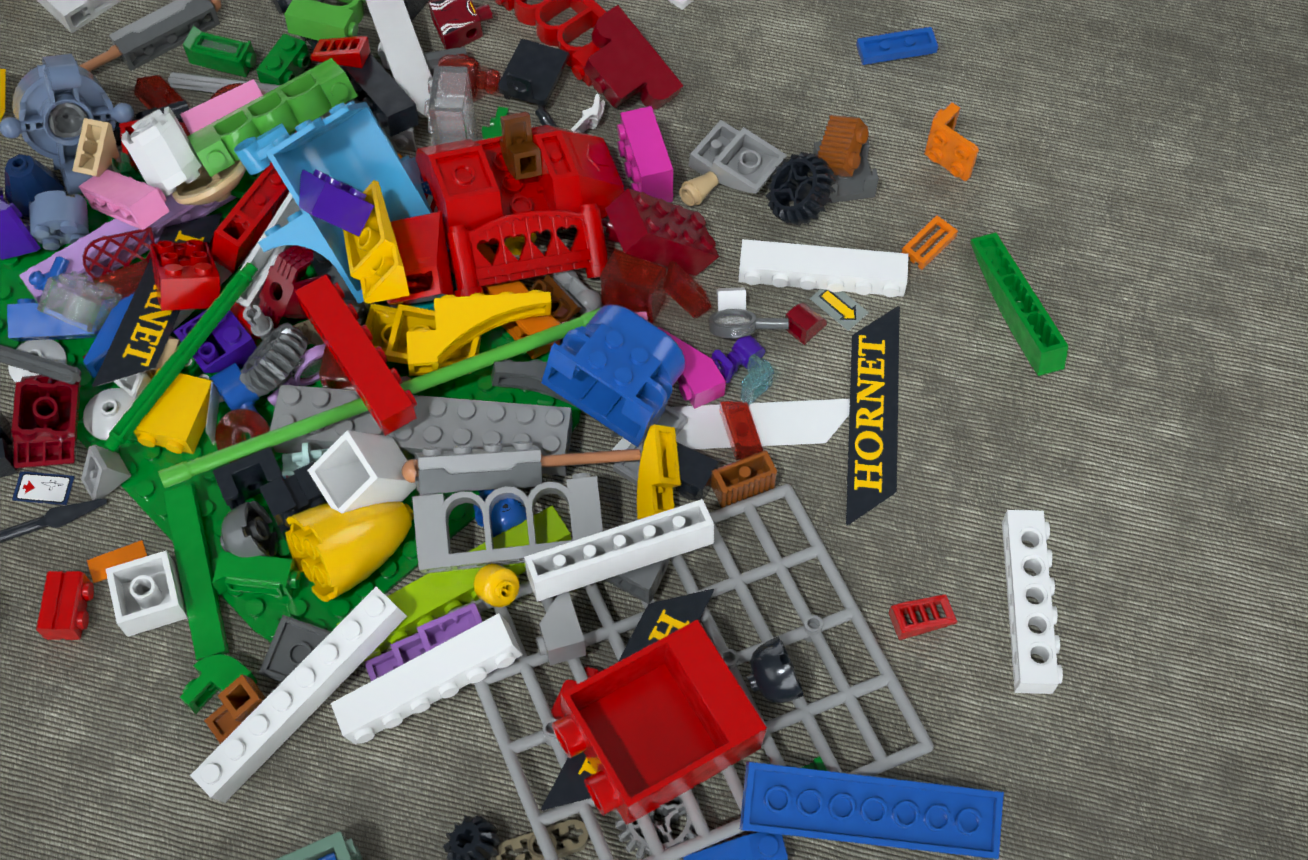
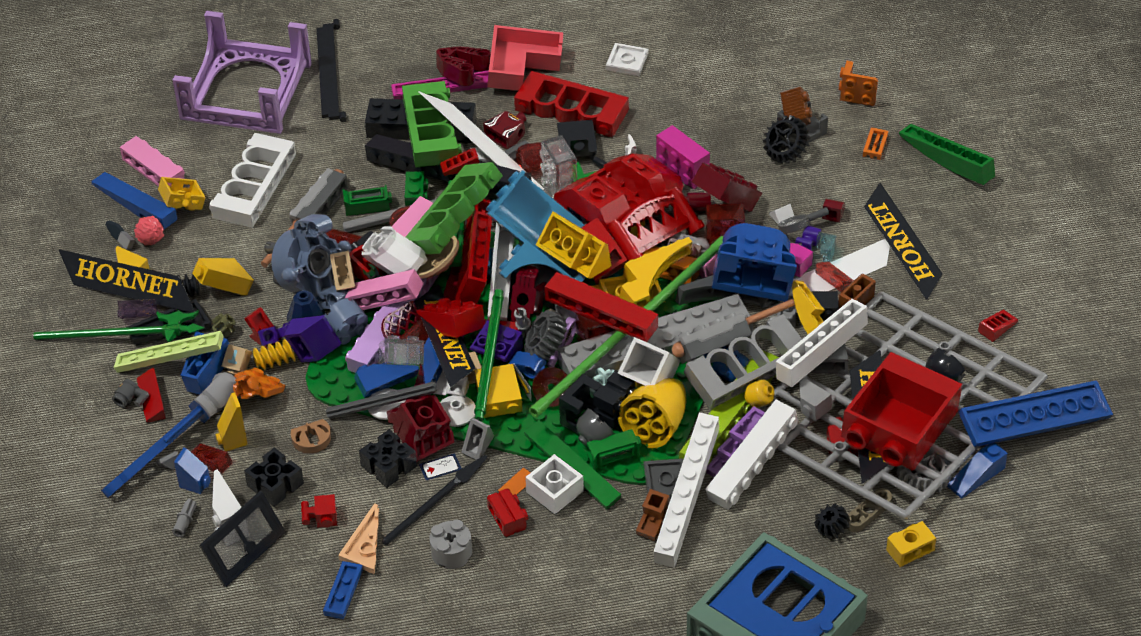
camera: 25 degrees left, 15 degrees down
(39, 280) = (371, 347): blue arm -> none
(215, 675) = (625, 507): green brick -> none
(253, 150) = (464, 226): dark azure piece -> none
(334, 201) = (539, 229): dark purple slope -> none
(517, 146) = (614, 173): reddish brown brick -> none
(628, 64) = (636, 111): dark red brick -> none
(686, 291) = (757, 215): clear red slope -> none
(696, 189) = (723, 161): tan cone -> none
(736, 158) = (734, 140): light grey slope -> none
(823, 268) = (824, 177): white brick -> none
(839, 307) = (845, 195): sticker -> none
(896, 45) = (785, 47): blue plate -> none
(1028, 674) = (1051, 293): white brick -> none

